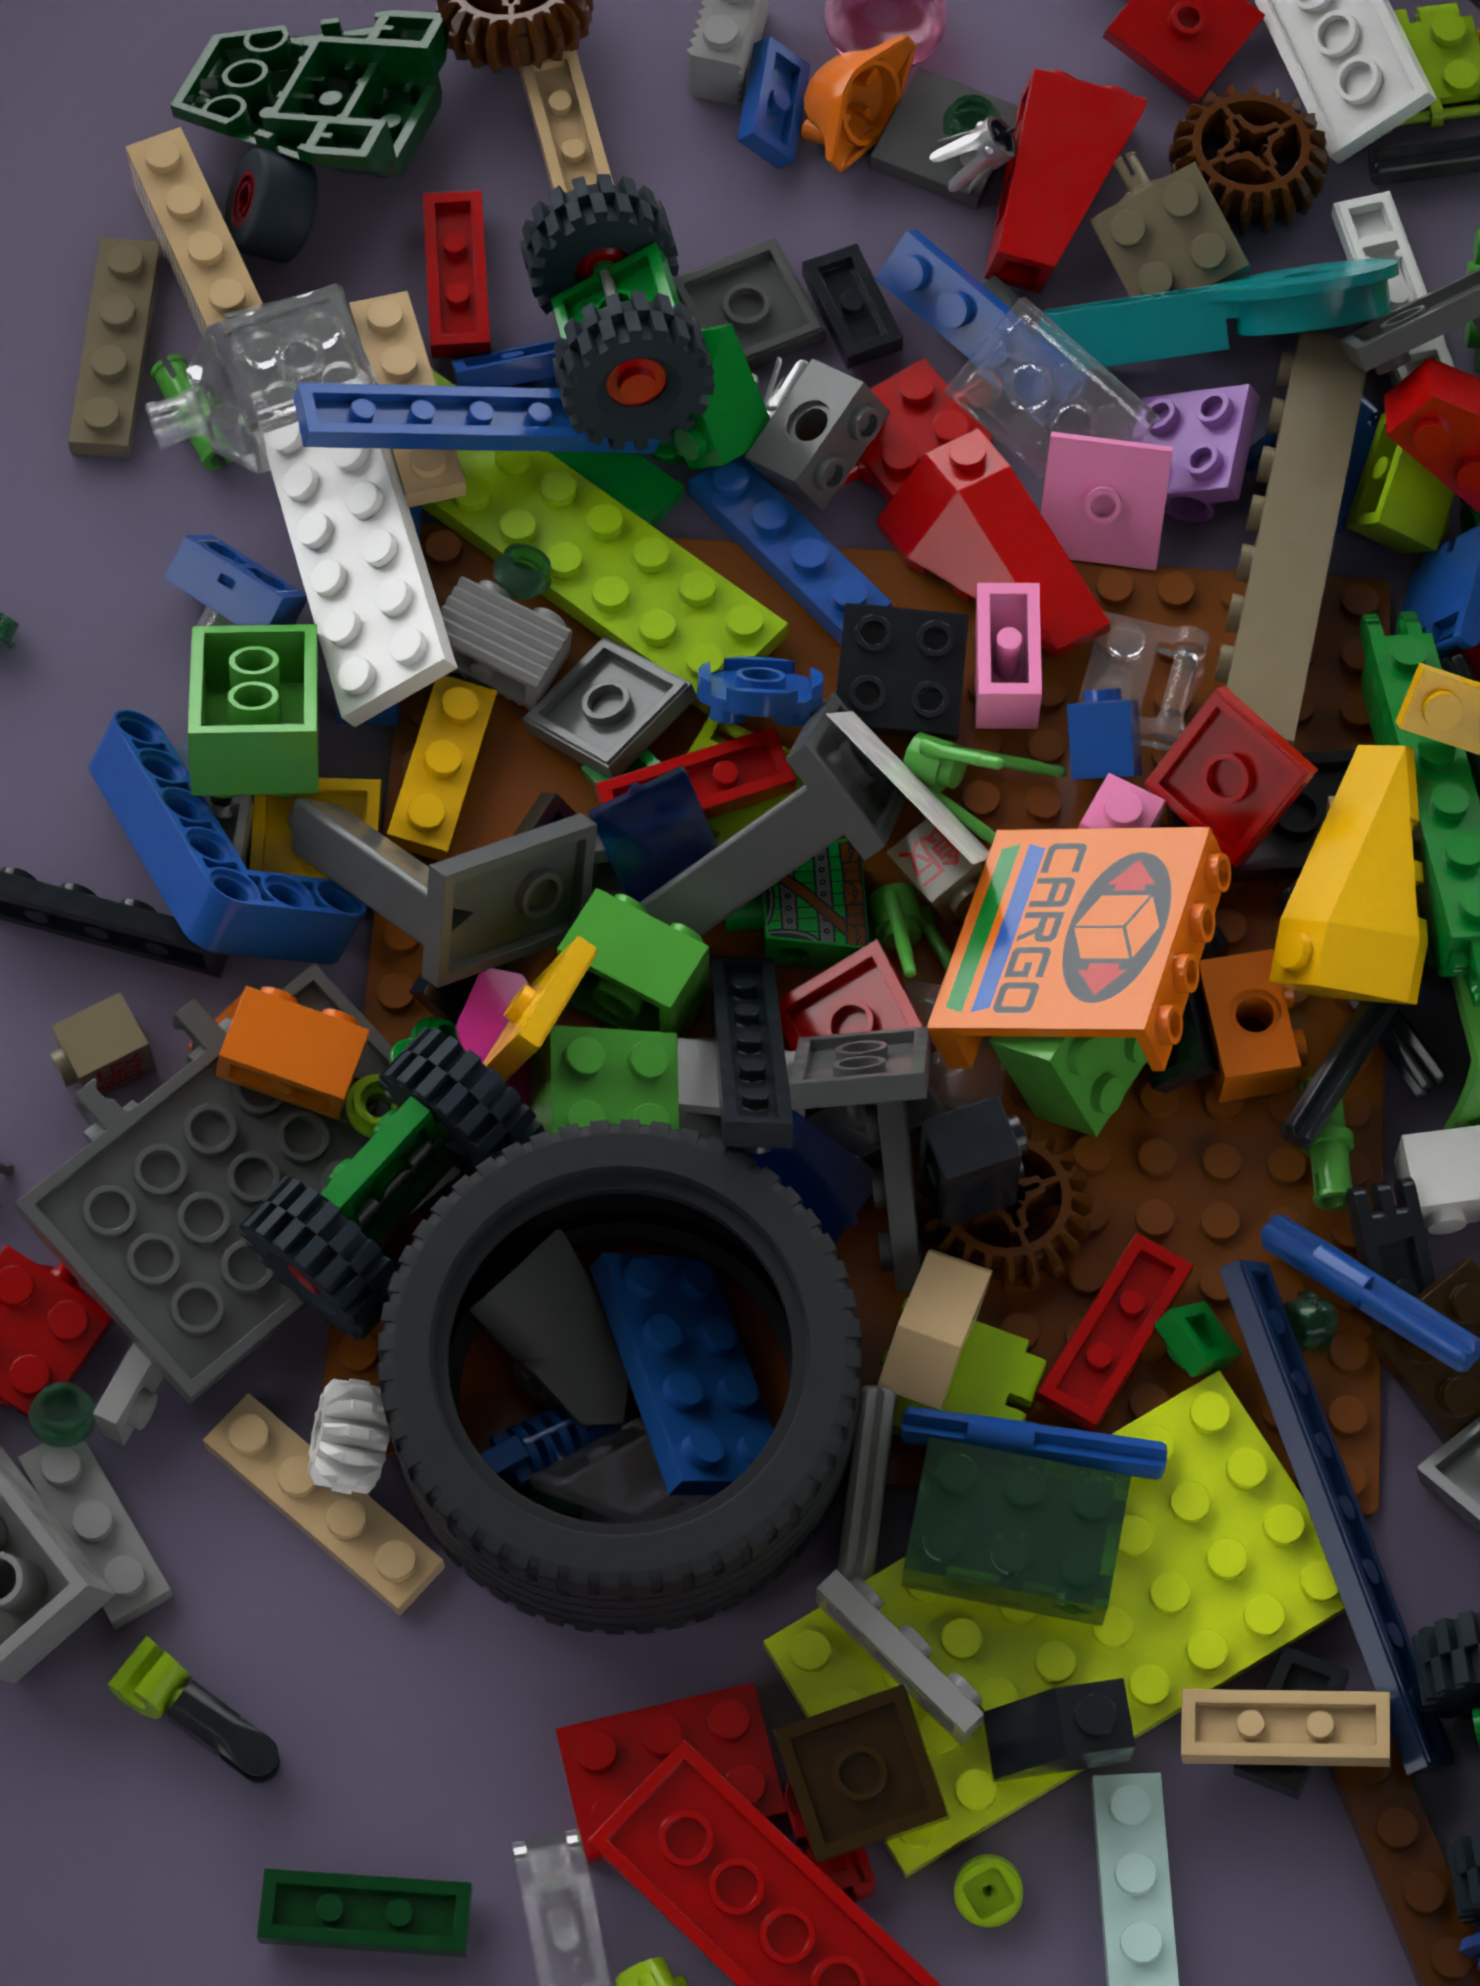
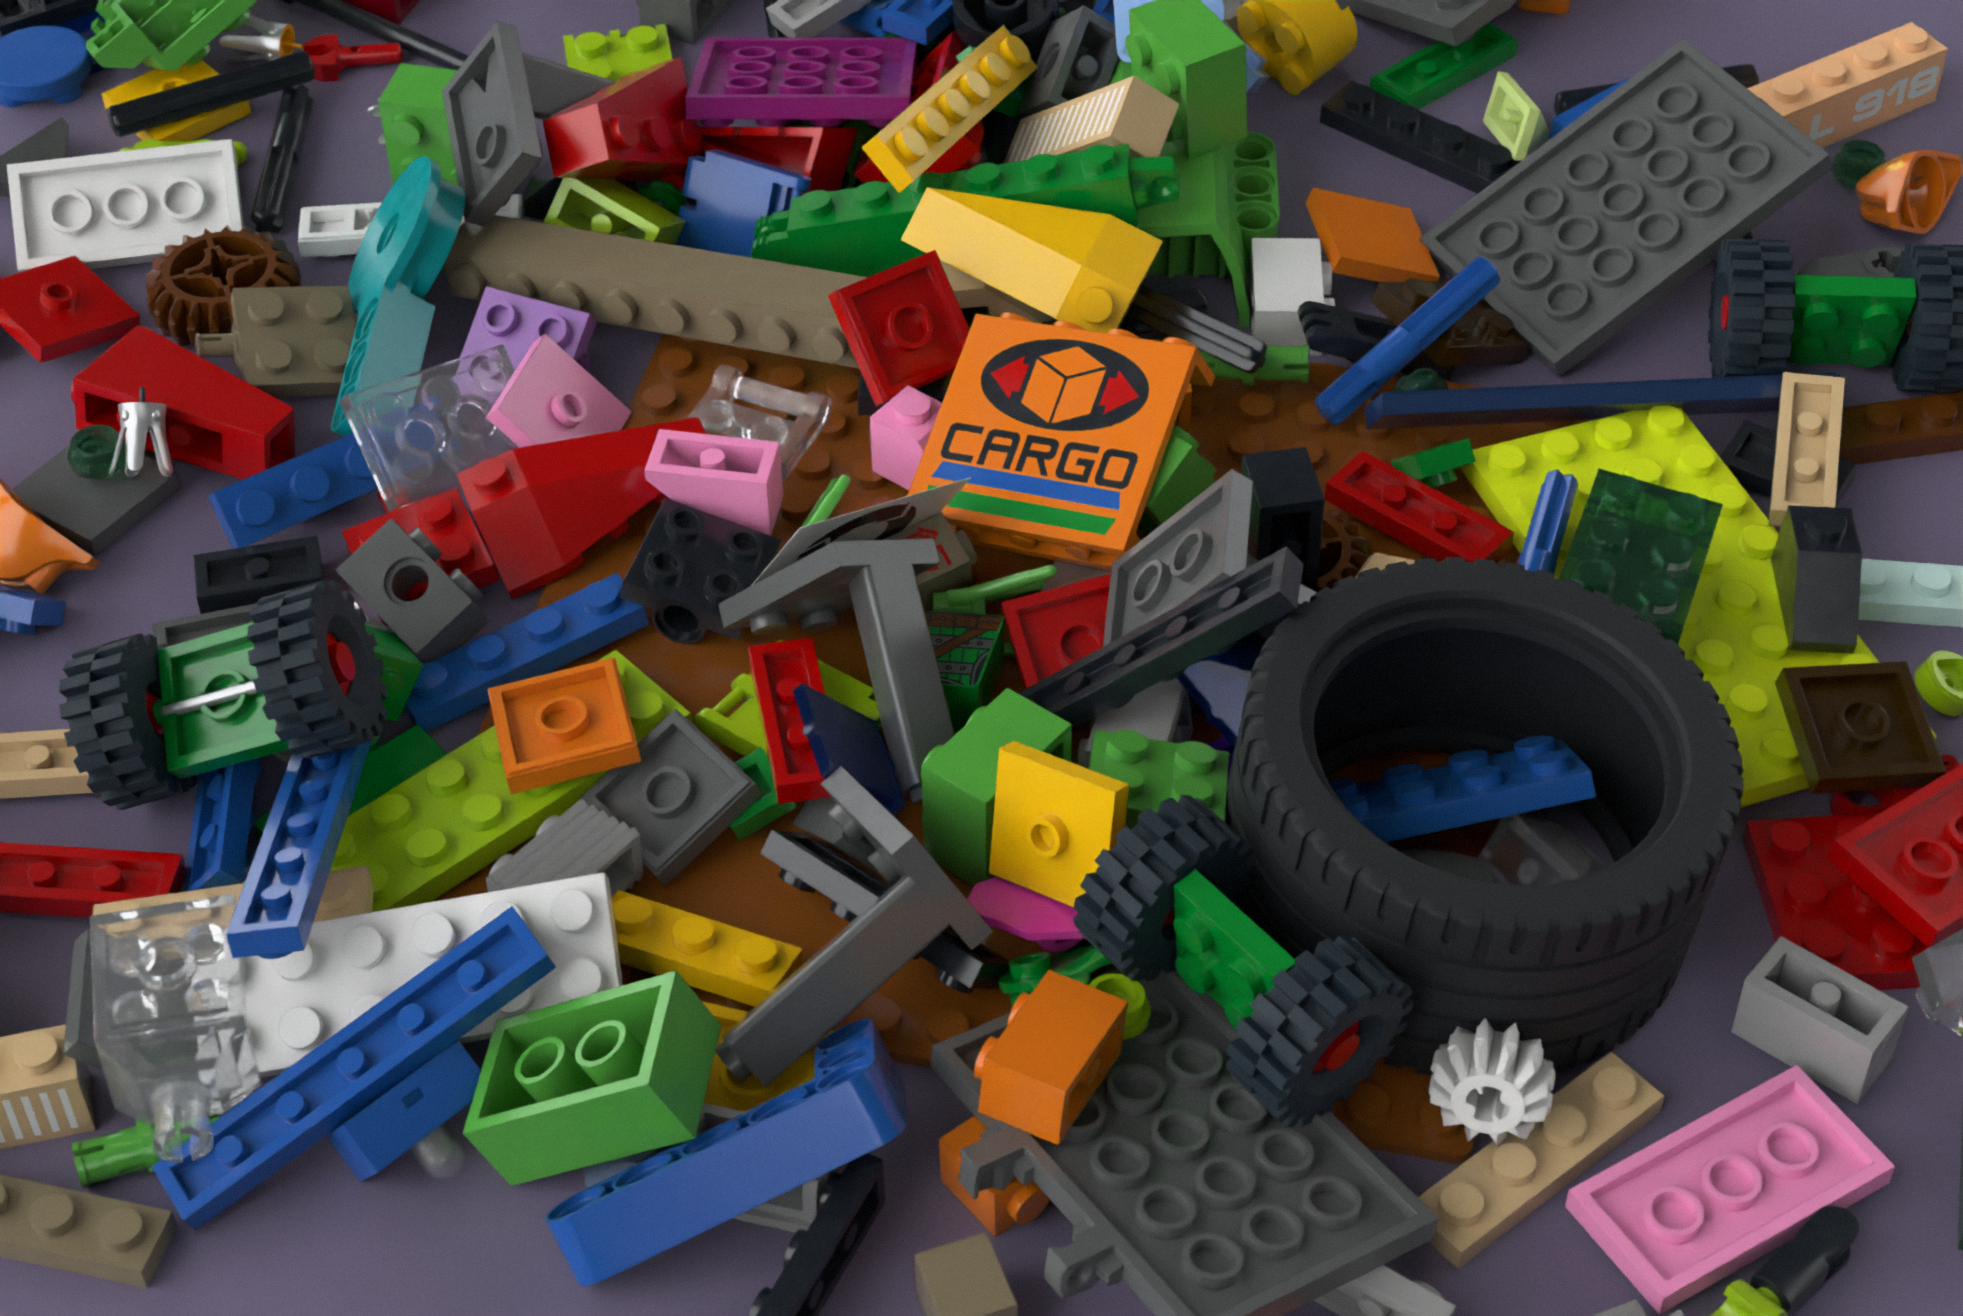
camera: 80 degrees left, 20 degrees down
(255, 535) = (356, 1066): none -> blue plate
(302, 1668) = (1727, 1188): none -> bright pink plate
(483, 1736) = (1819, 1019): none -> light grey brick
(523, 571) = (490, 837): clear green plate -> none
(661, 597) = (563, 725): none -> orange tile
(759, 689) = (705, 654): blue plate -> none
(901, 1655) = (1750, 673): light grey plate -> none
(1104, 736) = (822, 429): blue brick -> none

